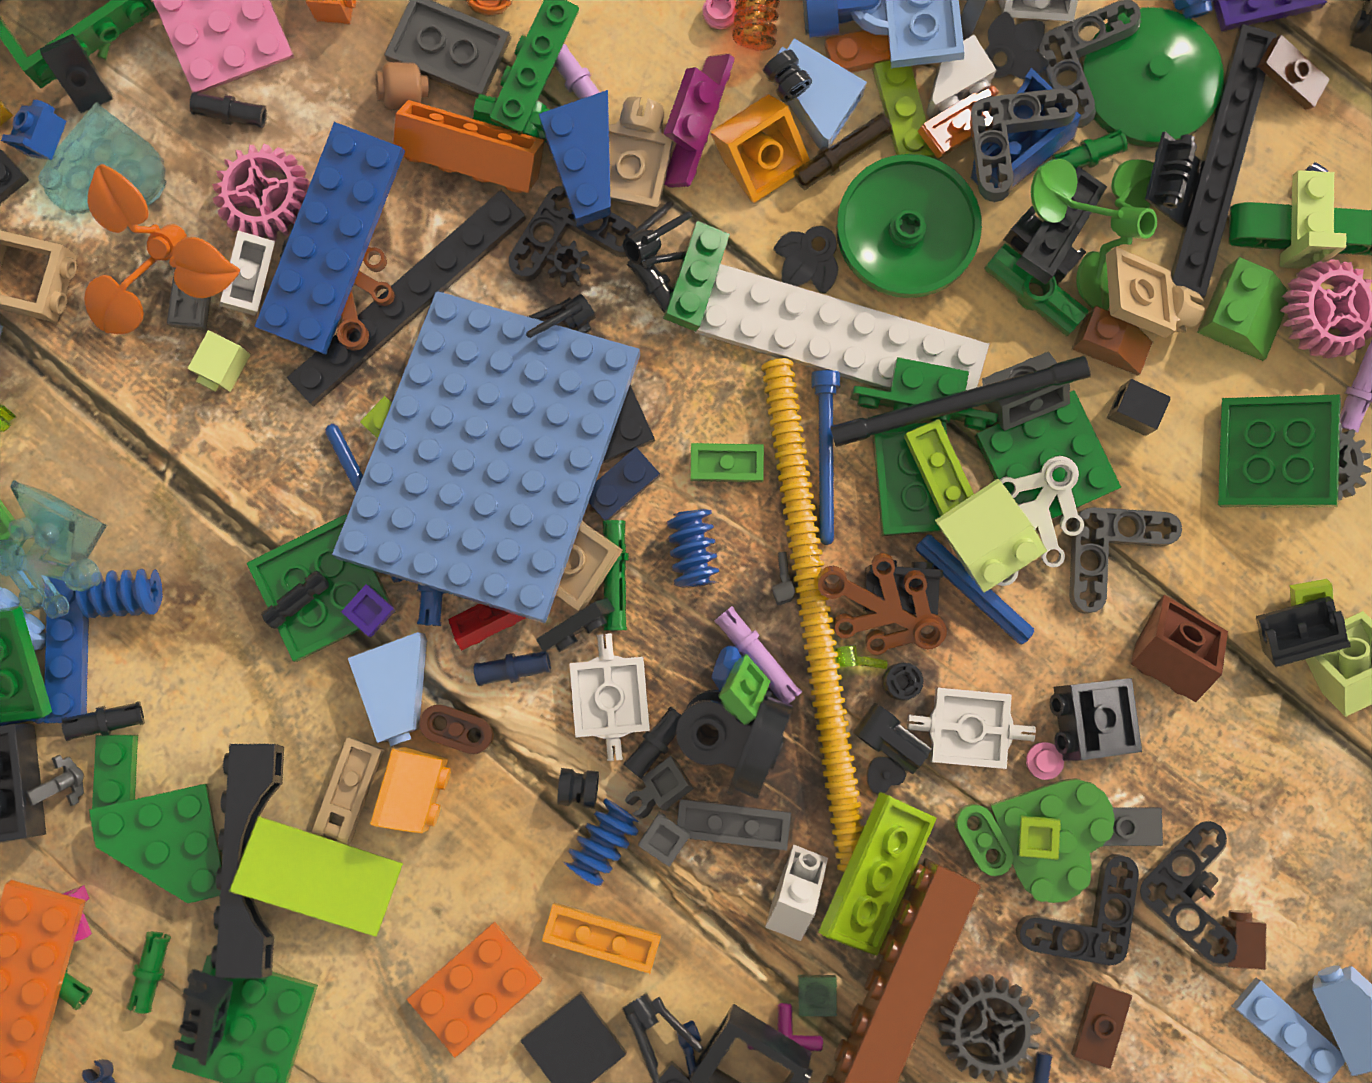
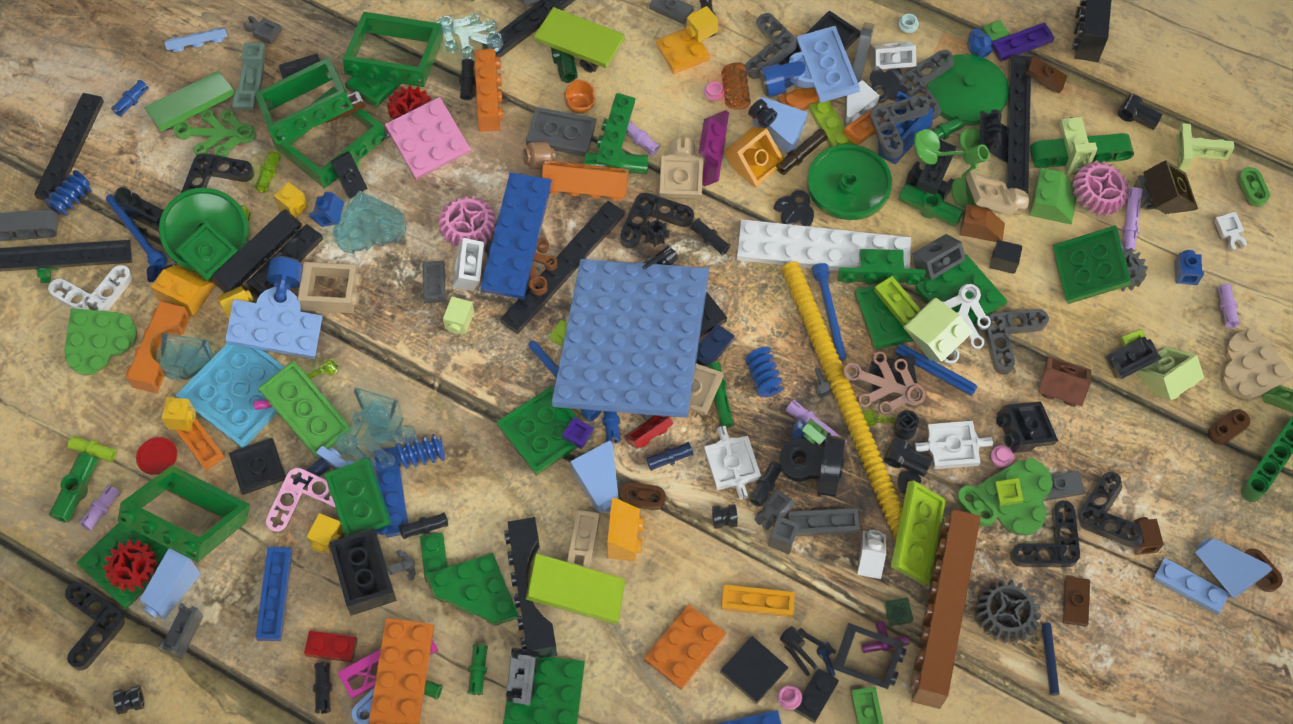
camera: 10 degrees left, 20 degrees down
(199, 266) = (393, 231): orange plant -> none
(228, 109) = (438, 183): black pin -> none
(295, 599) = (531, 435): black axle -> none
(580, 151) = (654, 171): blue wedge -> none
(587, 619) = (709, 417): black plate -> none
(602, 843) = (745, 541): blue piece -> none
(643, 244) = (700, 211): black plant -> none
(696, 276) = (732, 227): plate -> none
(727, 462) = (773, 323): bright green plate -> none
(1055, 375) = (850, 288): black piece -> none
(1202, 886) = (1114, 507): black piece -> none

